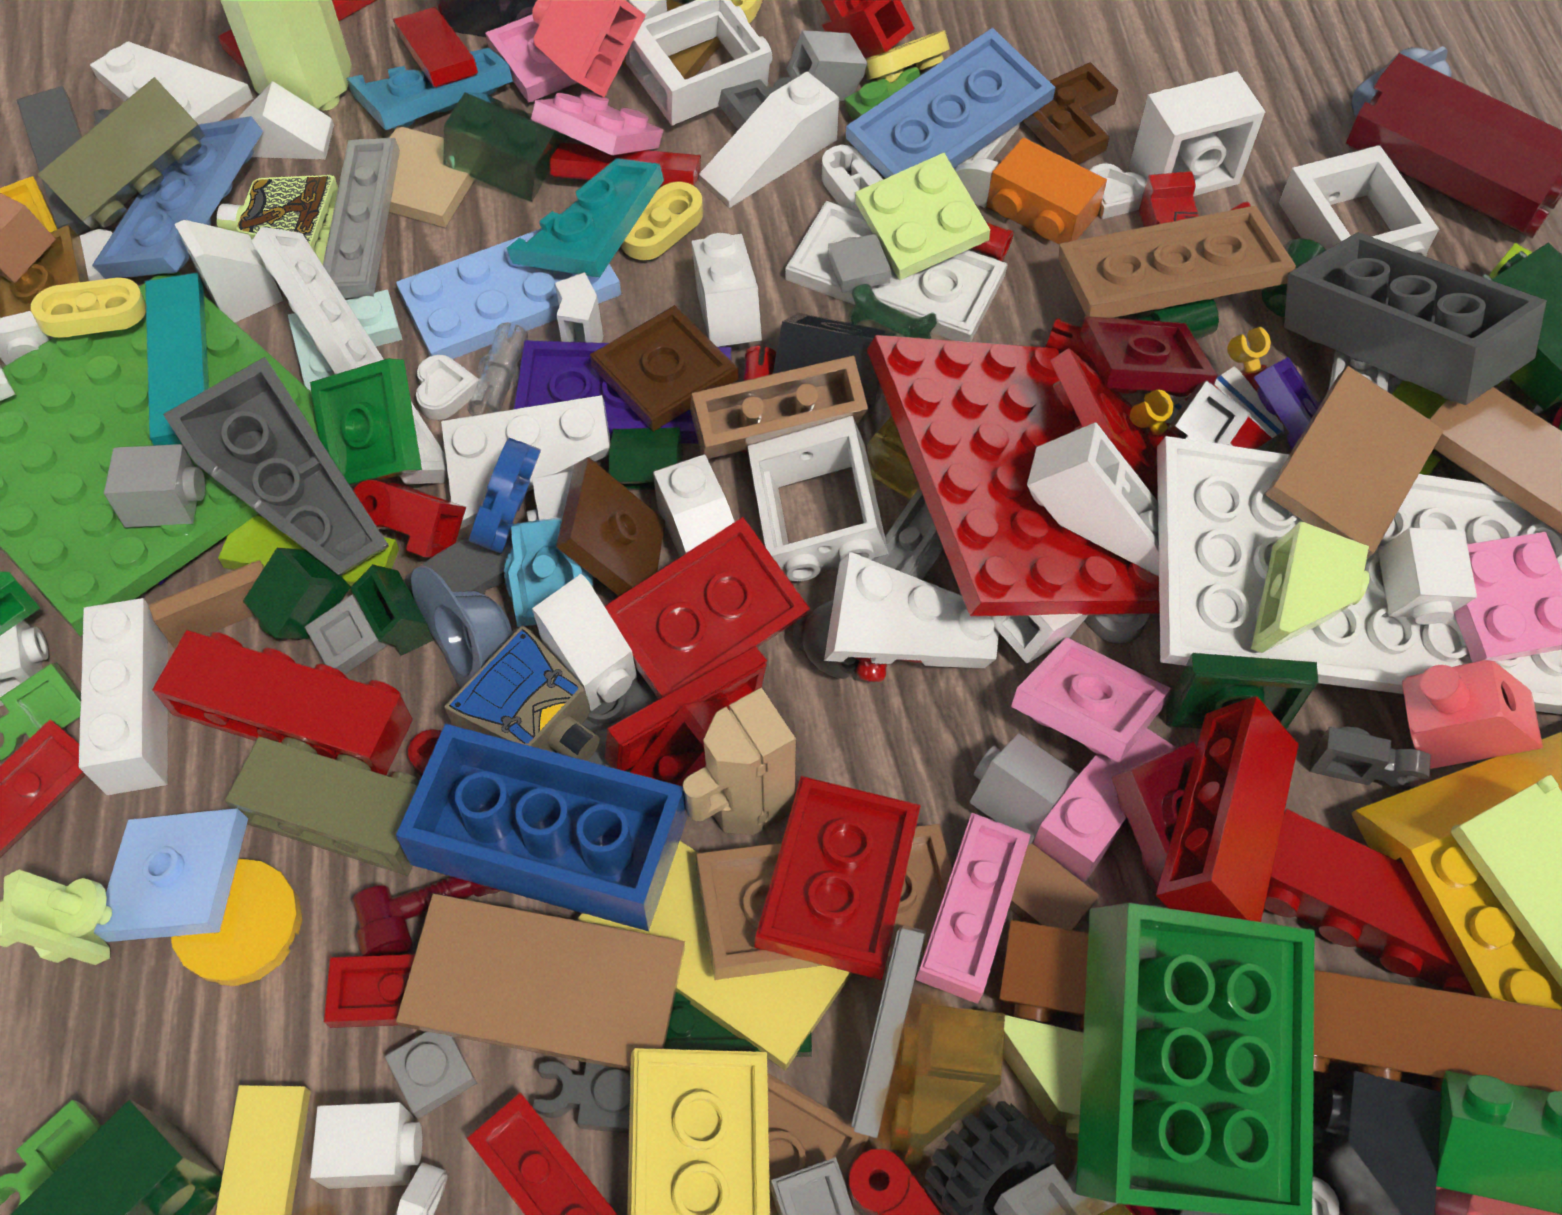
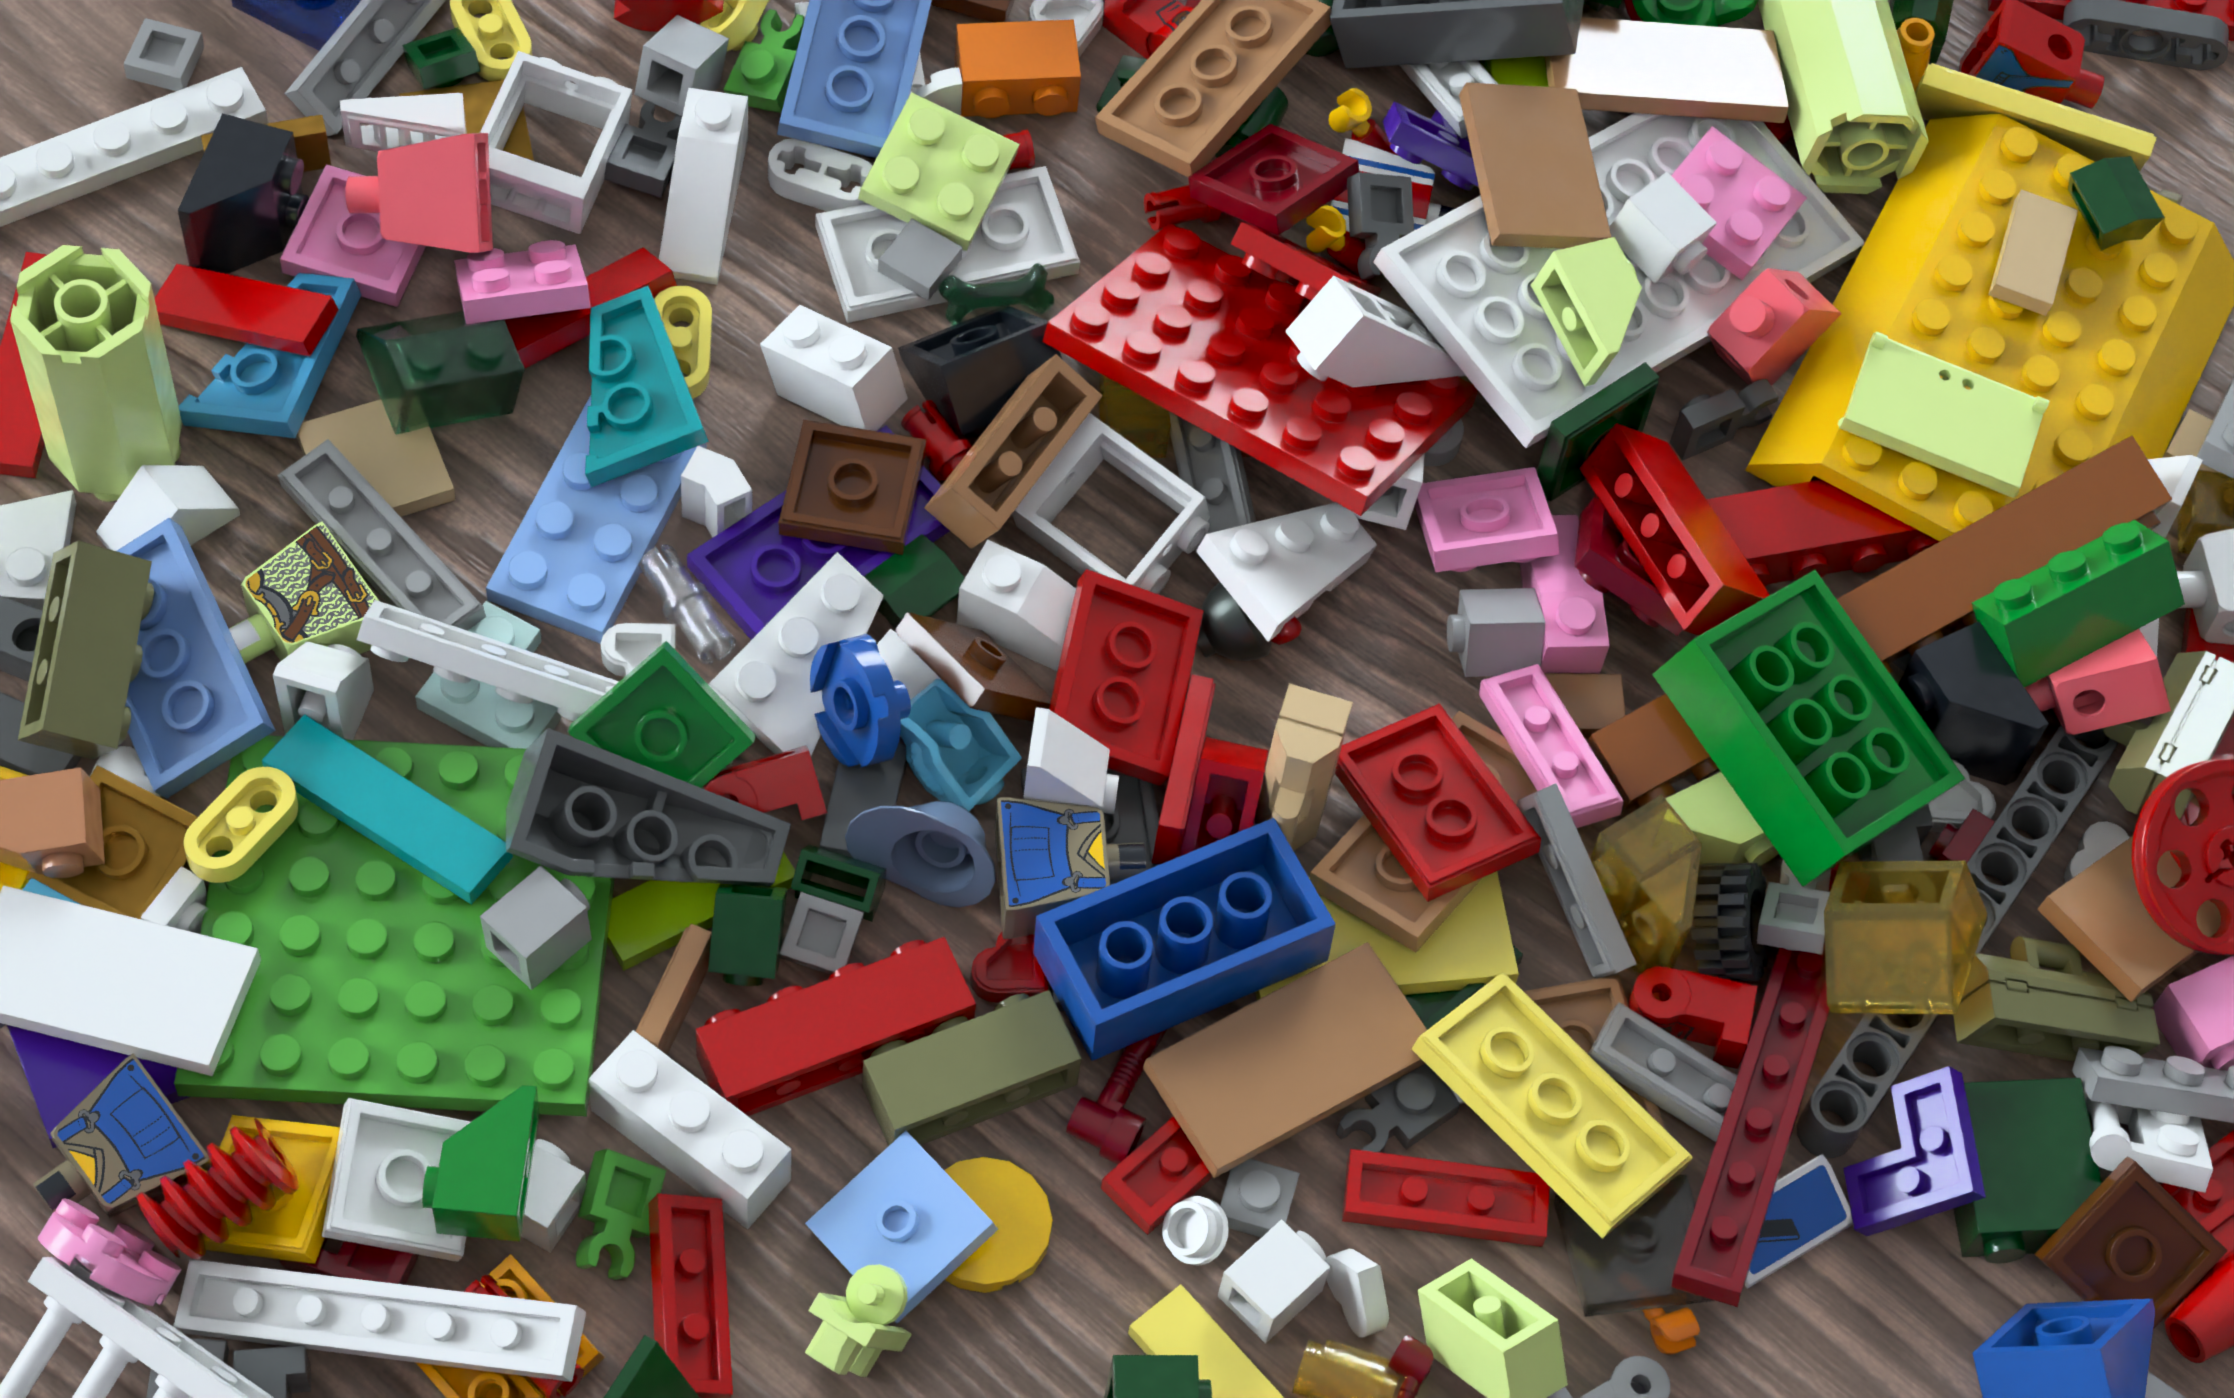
camera: 50 degrees left, 0 degrees up
(354, 1054) = (1195, 1230): none -> white plate

